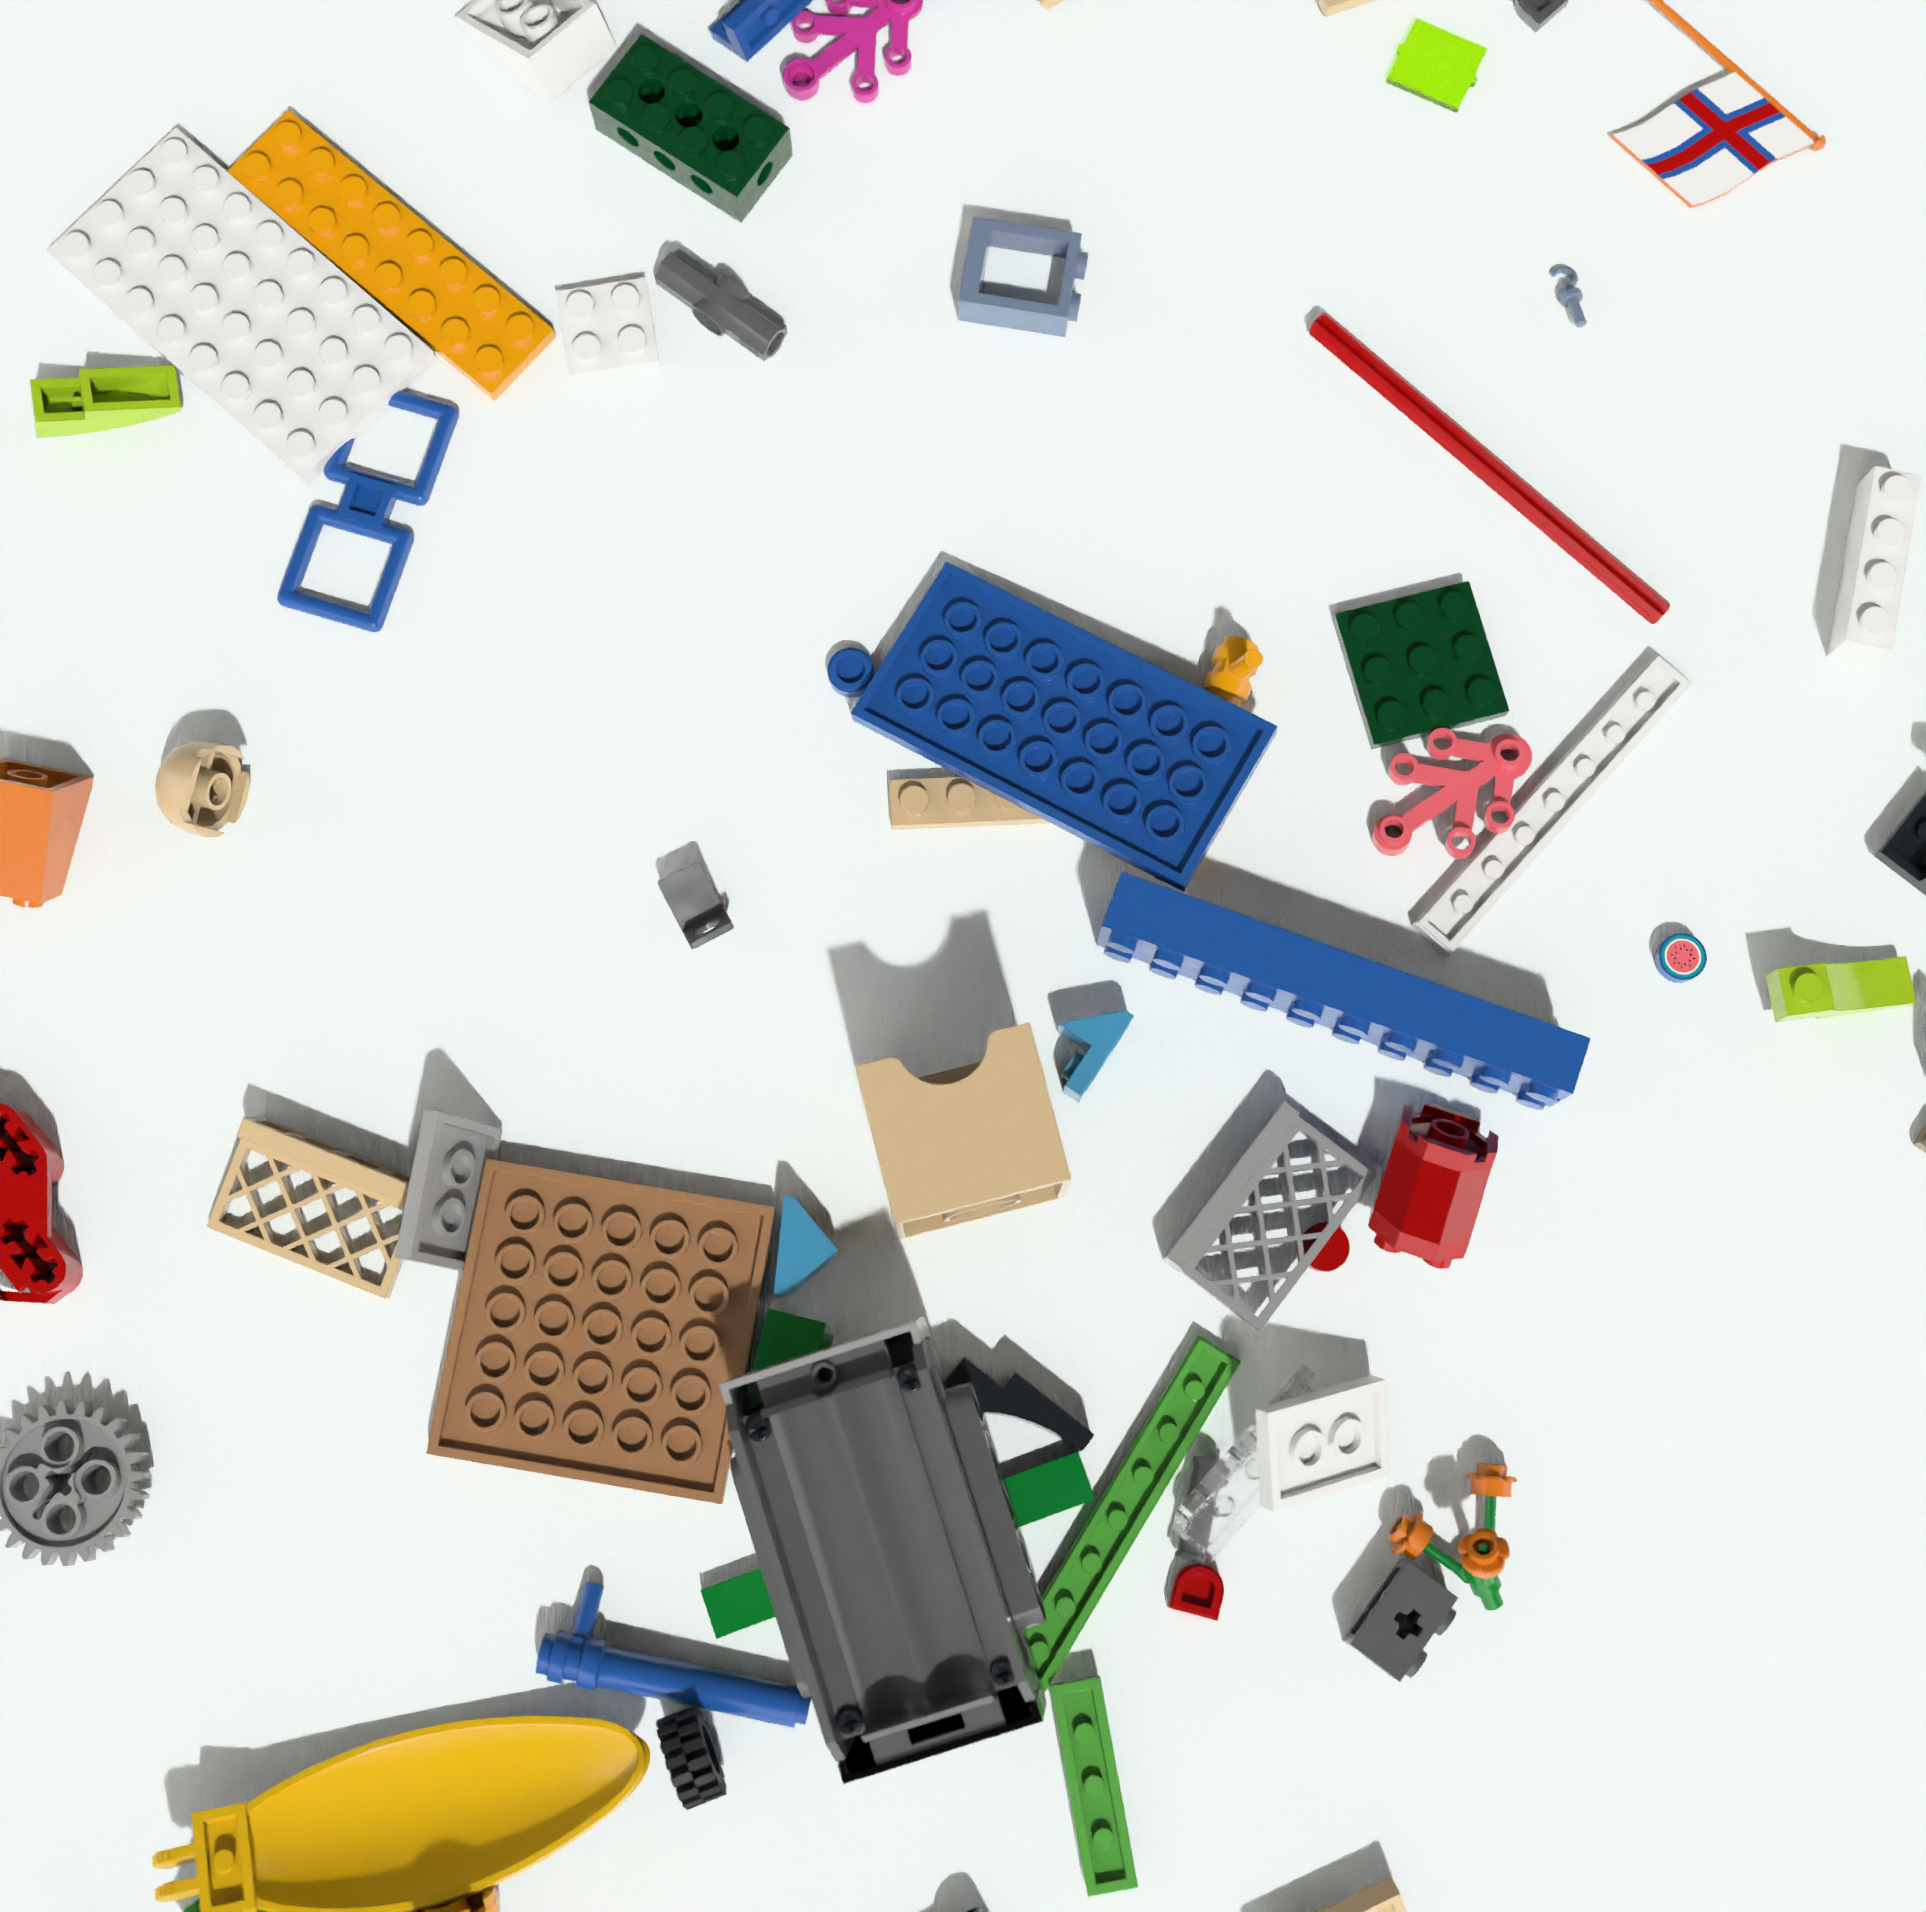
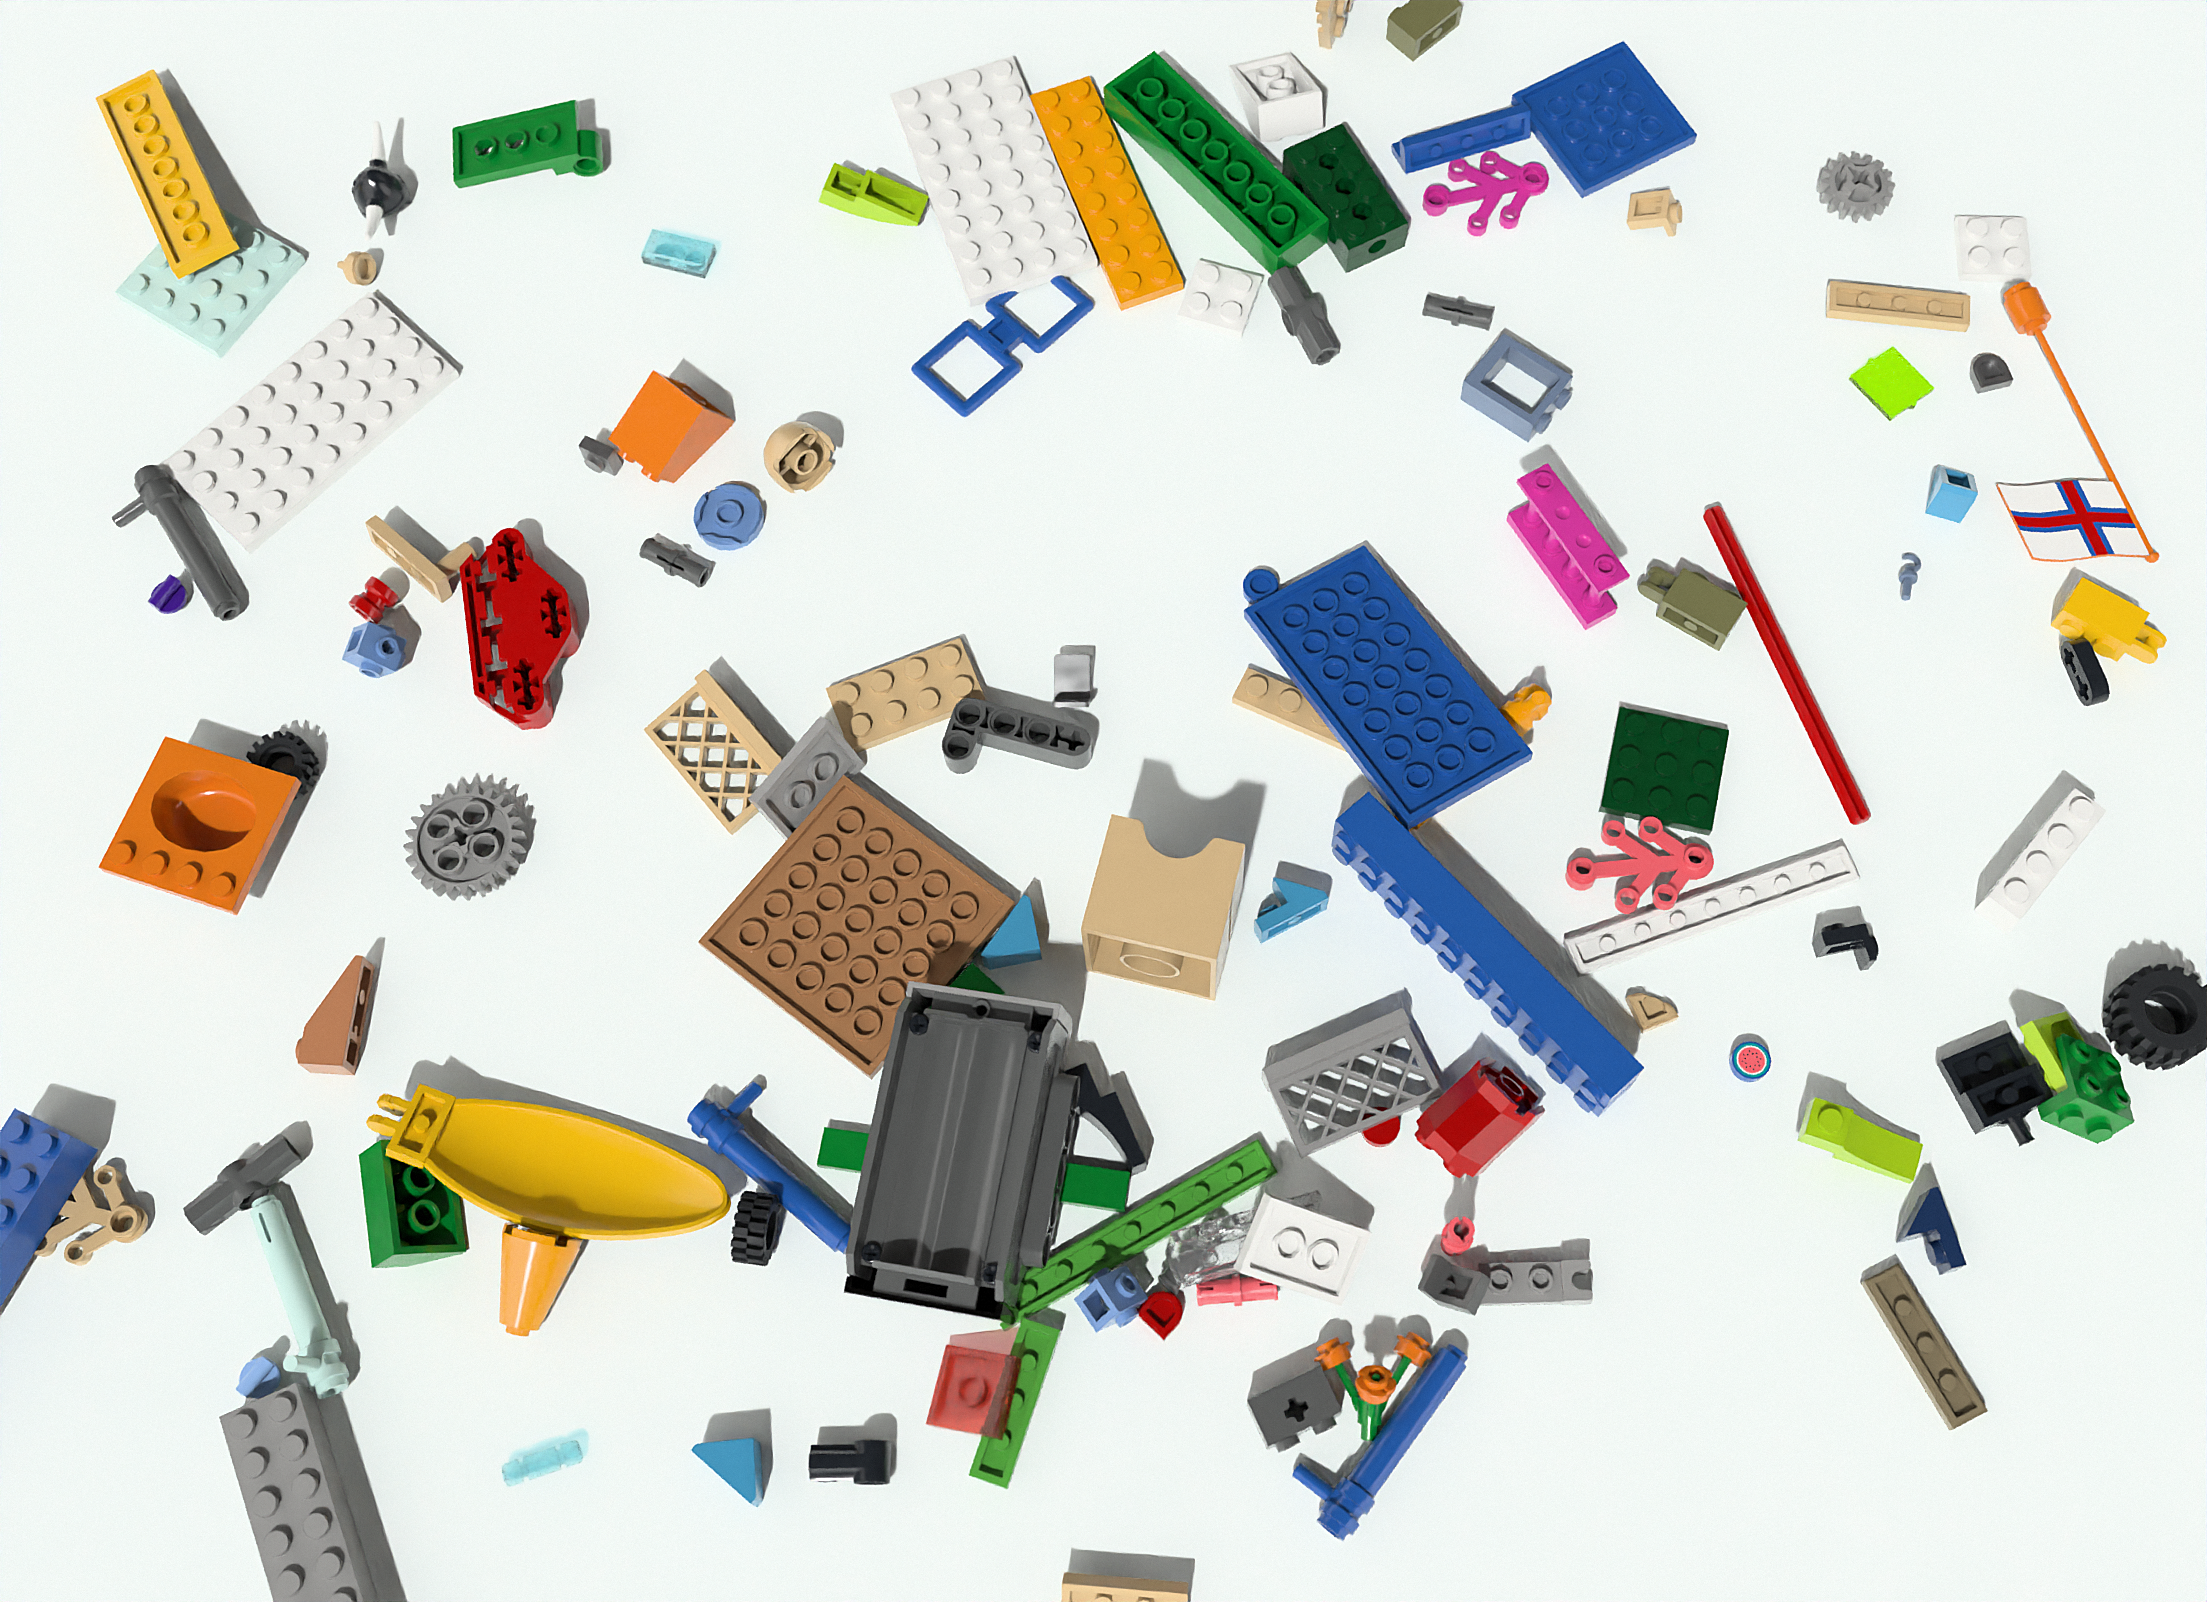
camera: 35 degrees right, 10 degrees down
(42, 1793) = (336, 1028): none -> nougat slope
(123, 996) = (674, 562): none -> dark grey pin
(157, 904) = (728, 517): none -> medium blue tile
(503, 1020) = (904, 695): none -> tan plate
(510, 156) = (1215, 164): none -> green brick
(671, 1008) = (1017, 741): none -> dark grey beam
(933, 206) = (1480, 317): none -> dark grey pin
(1042, 1800) = (974, 1392): none -> clear red tile
(1145, 1603) = (1111, 1298): none -> medium blue brick
(1184, 451) = (1567, 547): none -> dark pink fence
(1264, 1524) = (1235, 1291): none -> coral pin
(1357, 448) = (1694, 604): none -> olive brick
(1476, 1328) = (1457, 1236): none -> coral pin
(1500, 1386) = (1453, 1285): none -> dark grey bracket
(1514, 1675) = (1356, 1493): none -> blue cylinder
(1546, 956) = (1650, 1011): none -> tan tile
(1571, 171) = (1951, 494): none -> slope
(1578, 1336) = (1535, 1283): none -> light grey plate
(1731, 758) = (1840, 939): none -> black bracket
(1810, 248) = (2108, 623): none -> yellow brick
(1814, 318) = (2085, 672): none -> black beam

